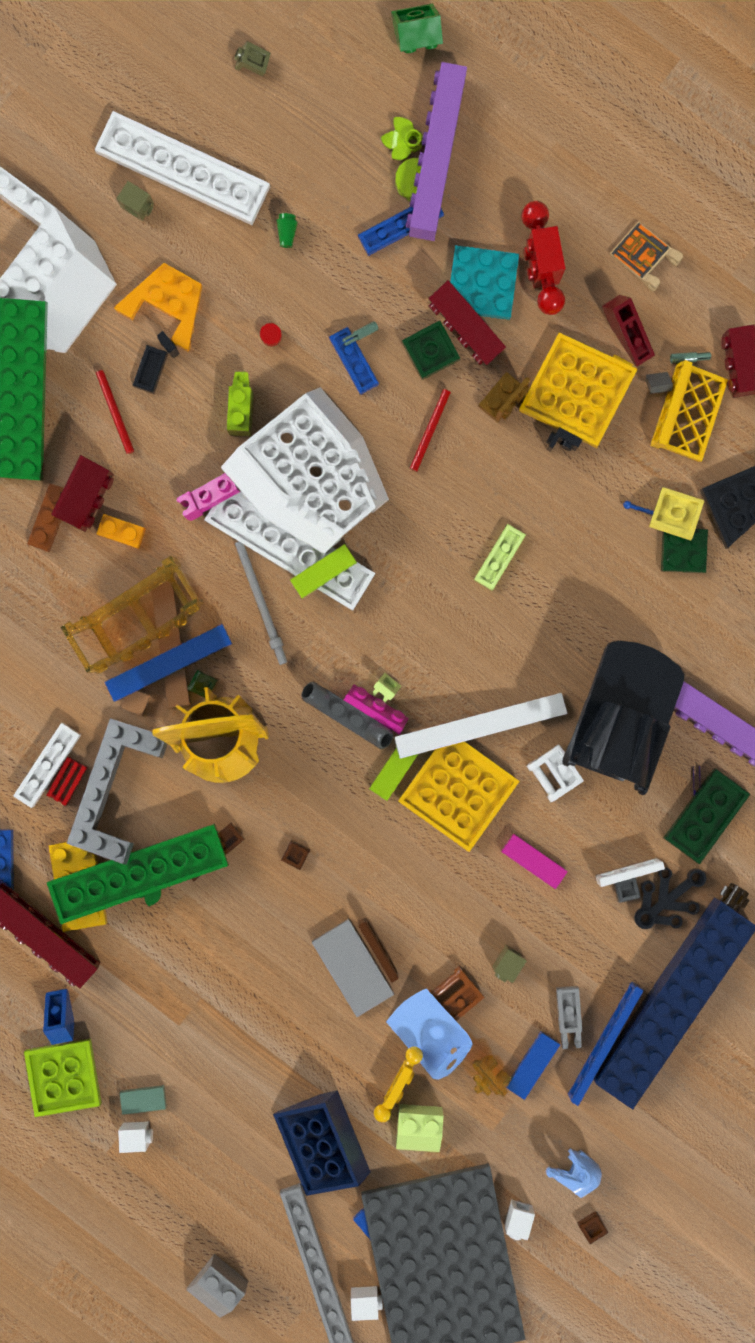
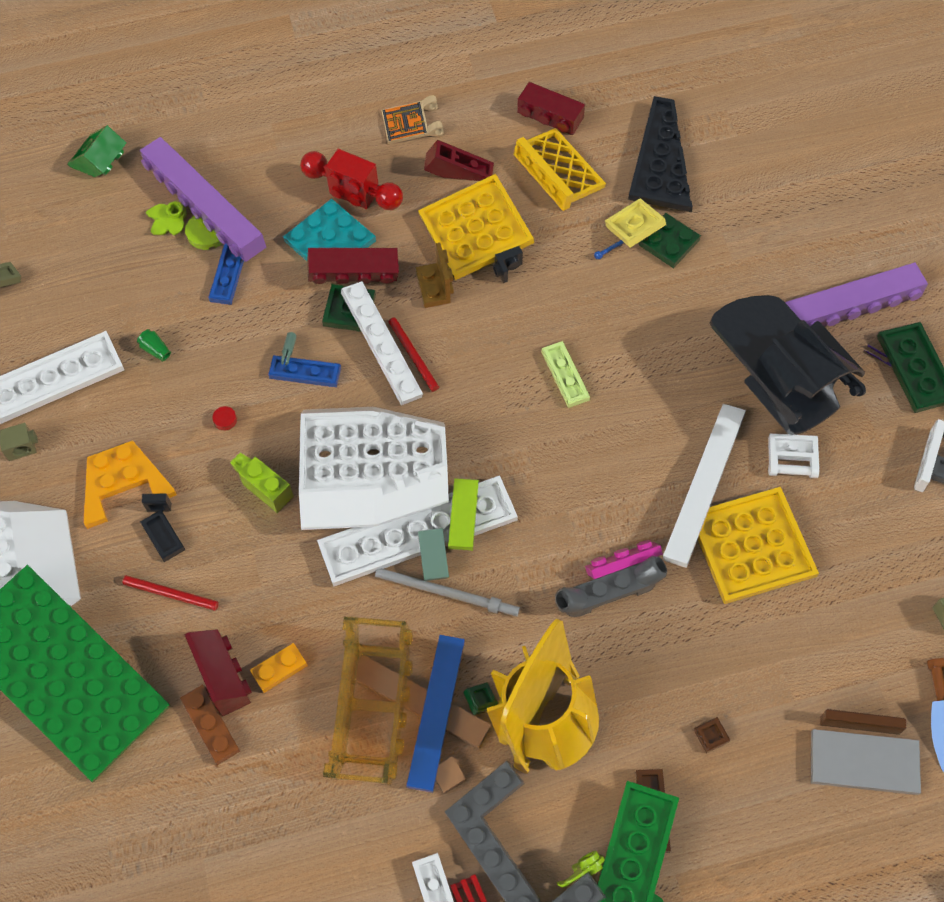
camera: 45 degrees left, 25 degrees down
(140, 836) = (588, 863): none -> lime plate
(207, 496) = (314, 563): dark pink plate -> none
(277, 573) = (433, 554): none -> sand green tile
(387, 687) = (609, 537): yellowish green tile -> none
(391, 775) = (694, 590): lime tile -> none
(418, 399) = (381, 343): none -> white plate
(534, 861) = (865, 527): dark pink tile -> none
(659, 382) = (518, 171): dark grey tile -> none
(692, 357) = (509, 149): sand green pin -> none

